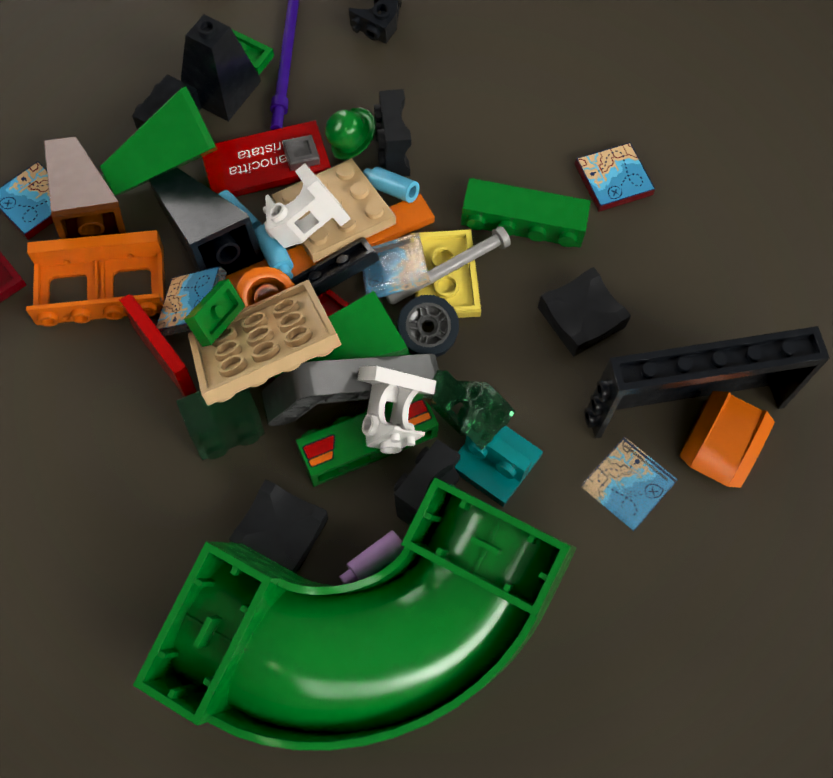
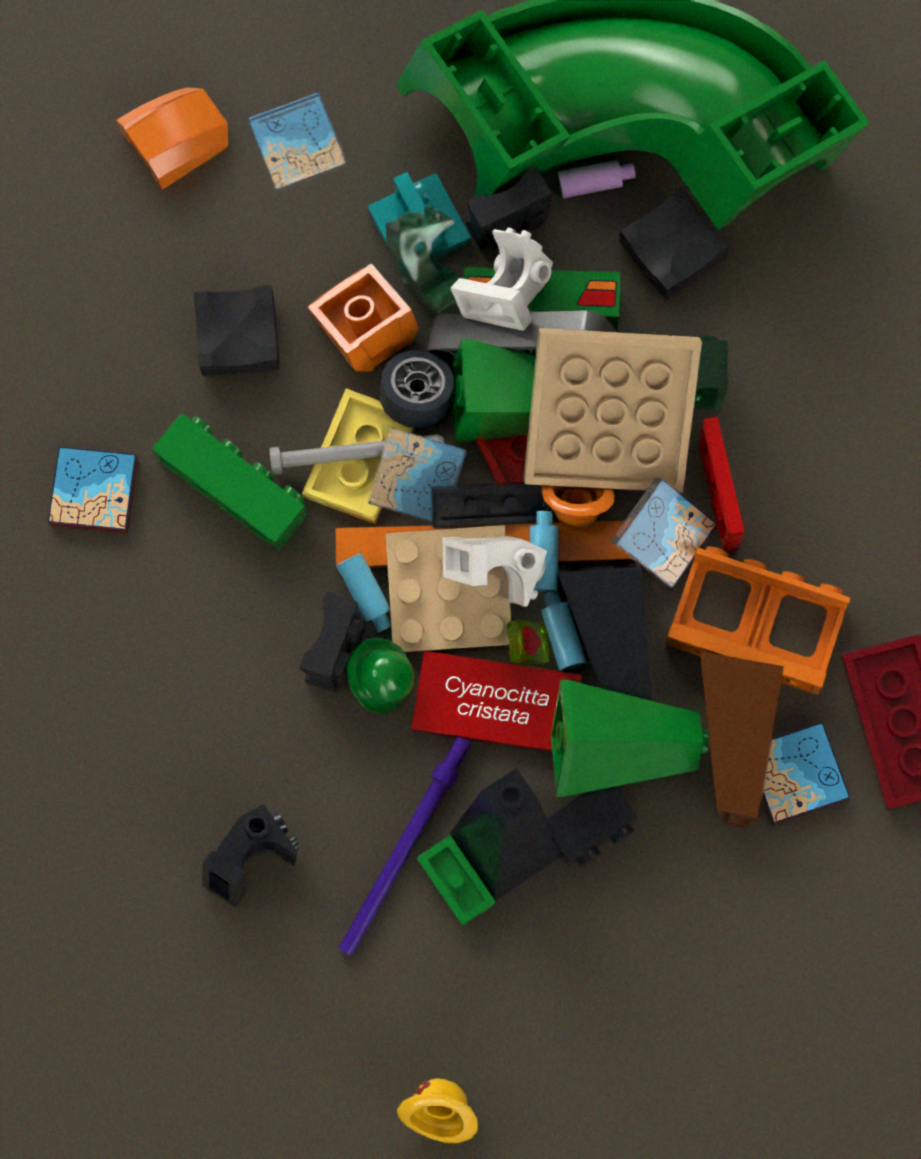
camera: 145 degrees left, 10 degrees up
(214, 312) = (645, 476): green plate -> none
(255, 197) = (528, 642): none -> clear neon green tile
(300, 151) = (451, 682): flat silver tile -> none
(500, 358) = (365, 319): none -> orange slope
(774, 359) = (179, 166): black panel -> none

